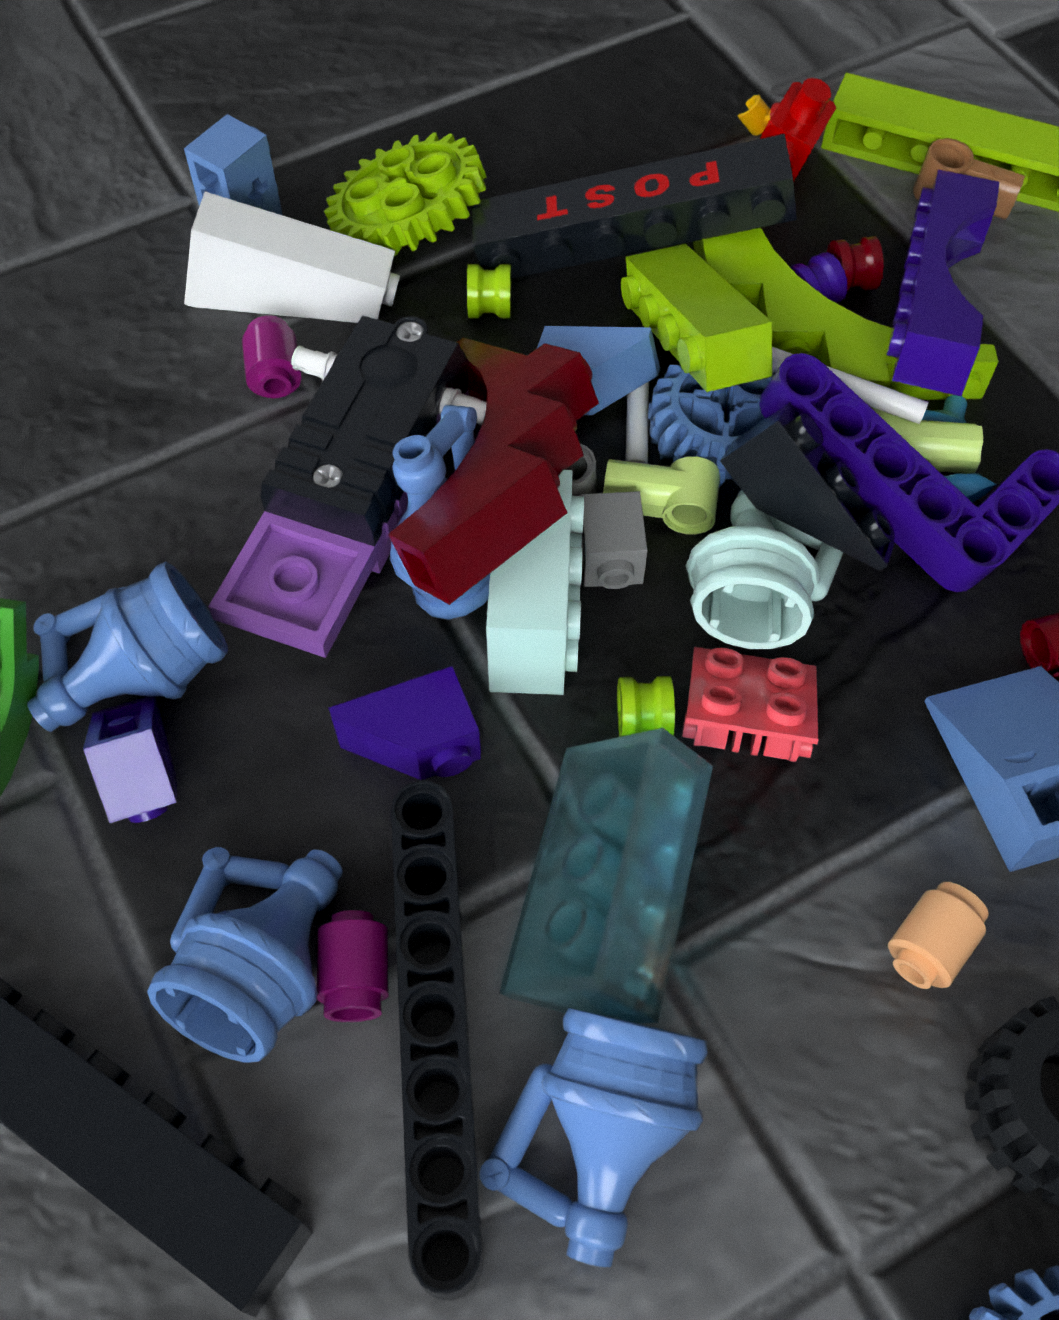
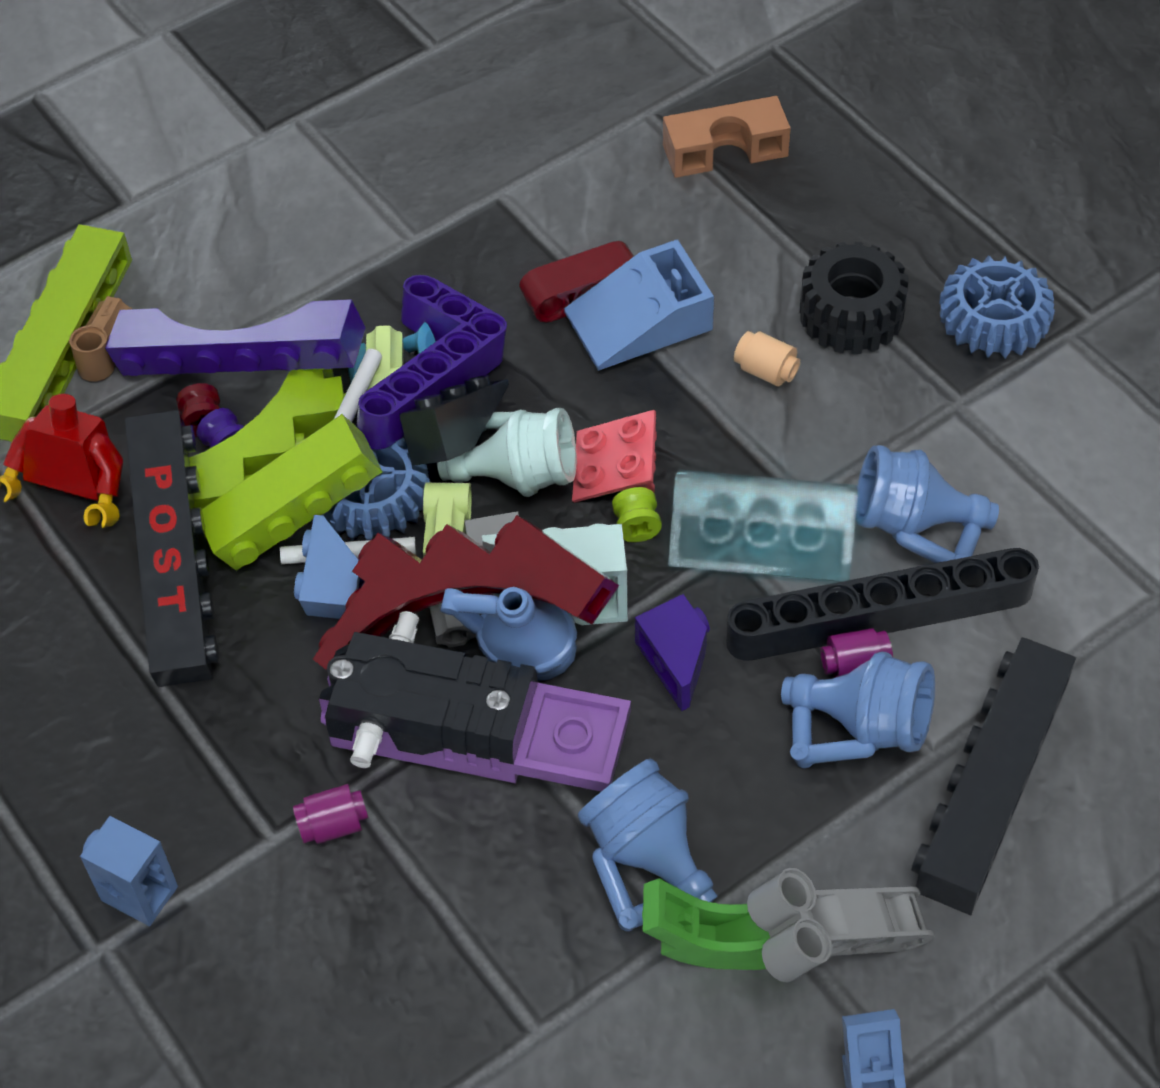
camera: 95 degrees left, 5 degrees down
(131, 761) = (735, 820): slope -> none
(283, 266) = (229, 822): white slope -> none
(408, 192) = (164, 754): lime gear -> none
(489, 291) = (241, 660): lime wheel -> none

